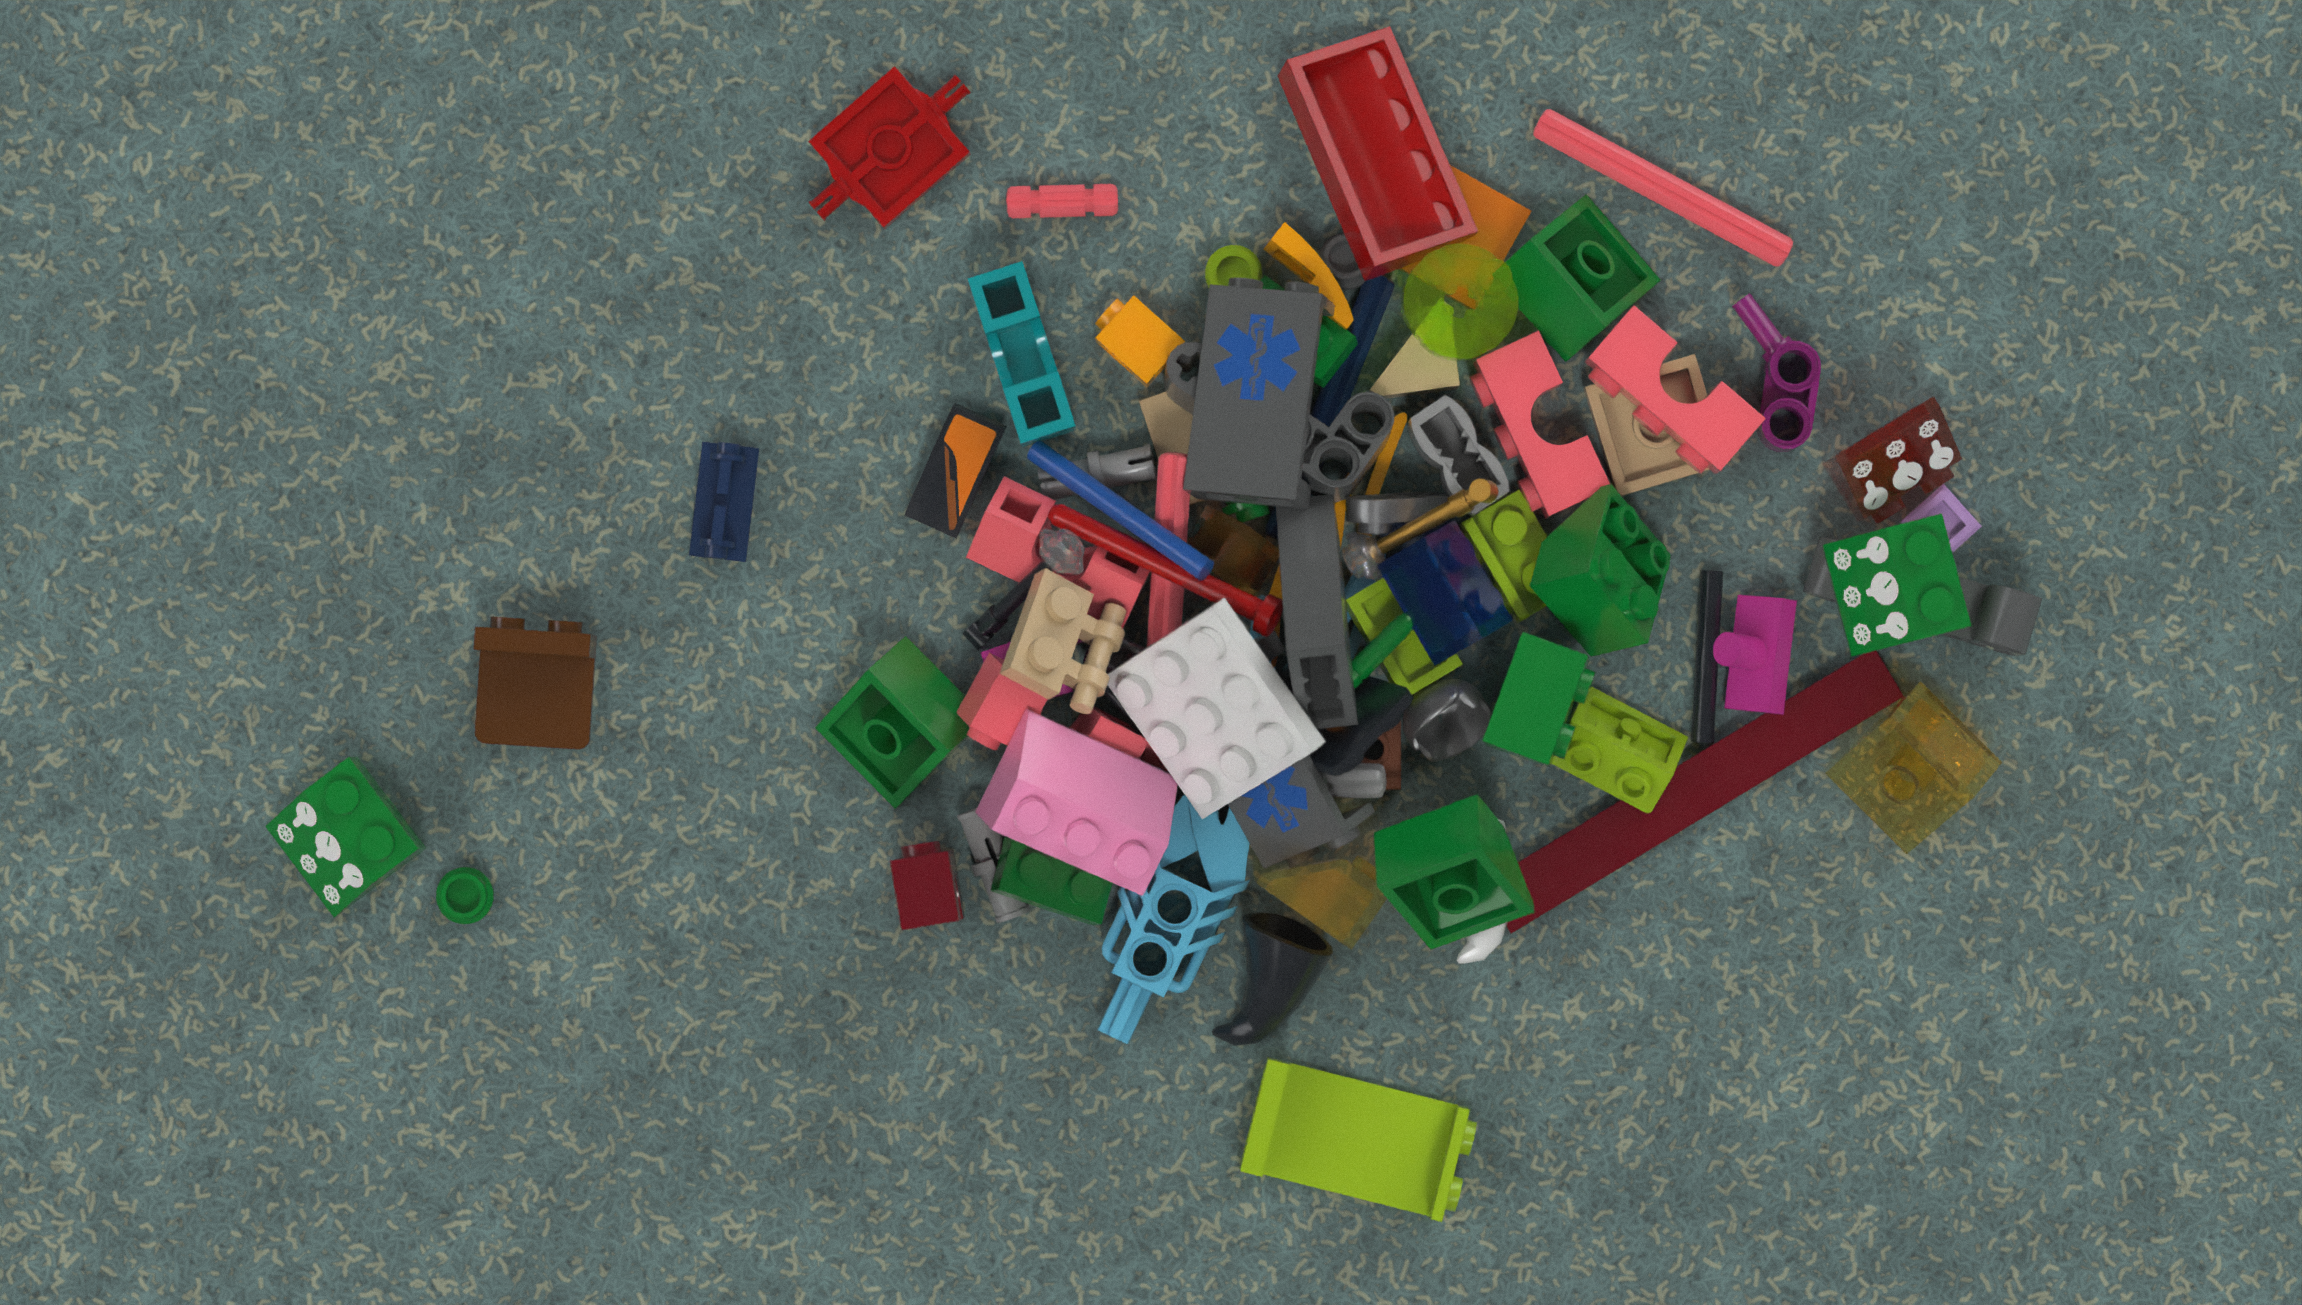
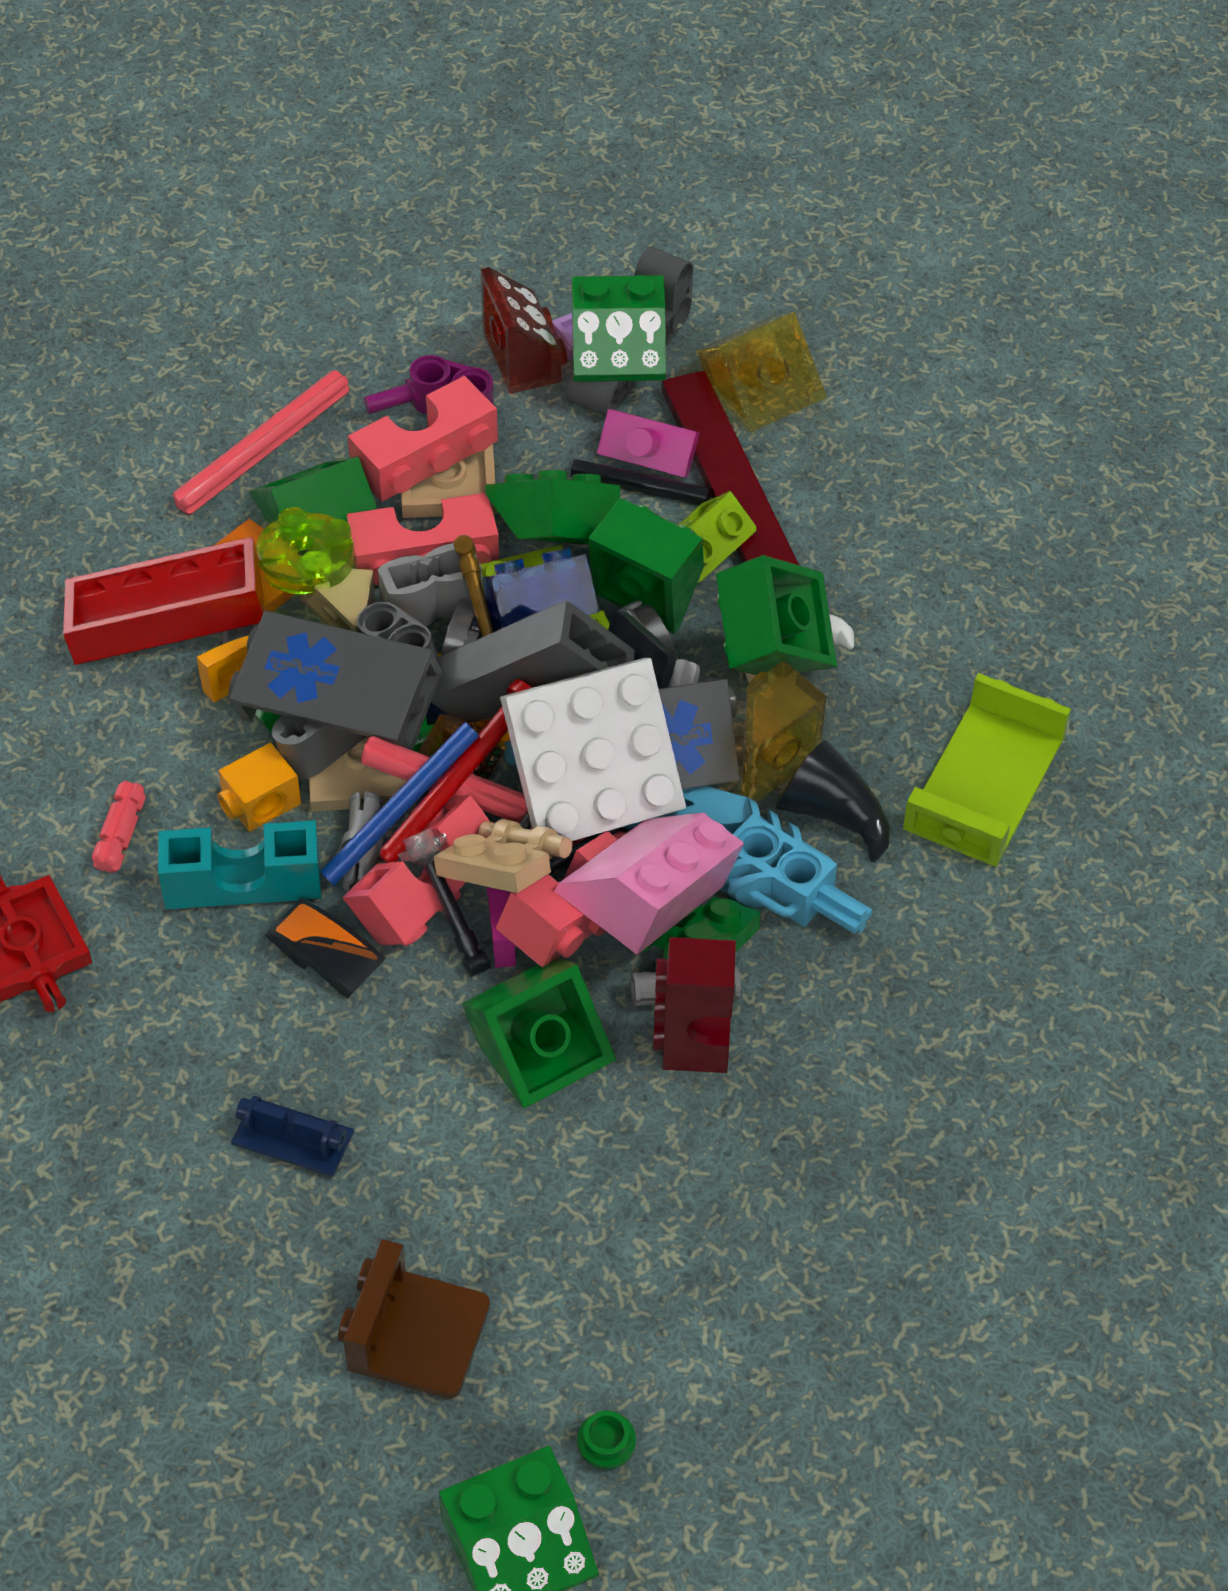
camera: 80 degrees left, 35 degrees down
(1232, 262) = (224, 725): lime tile -> none

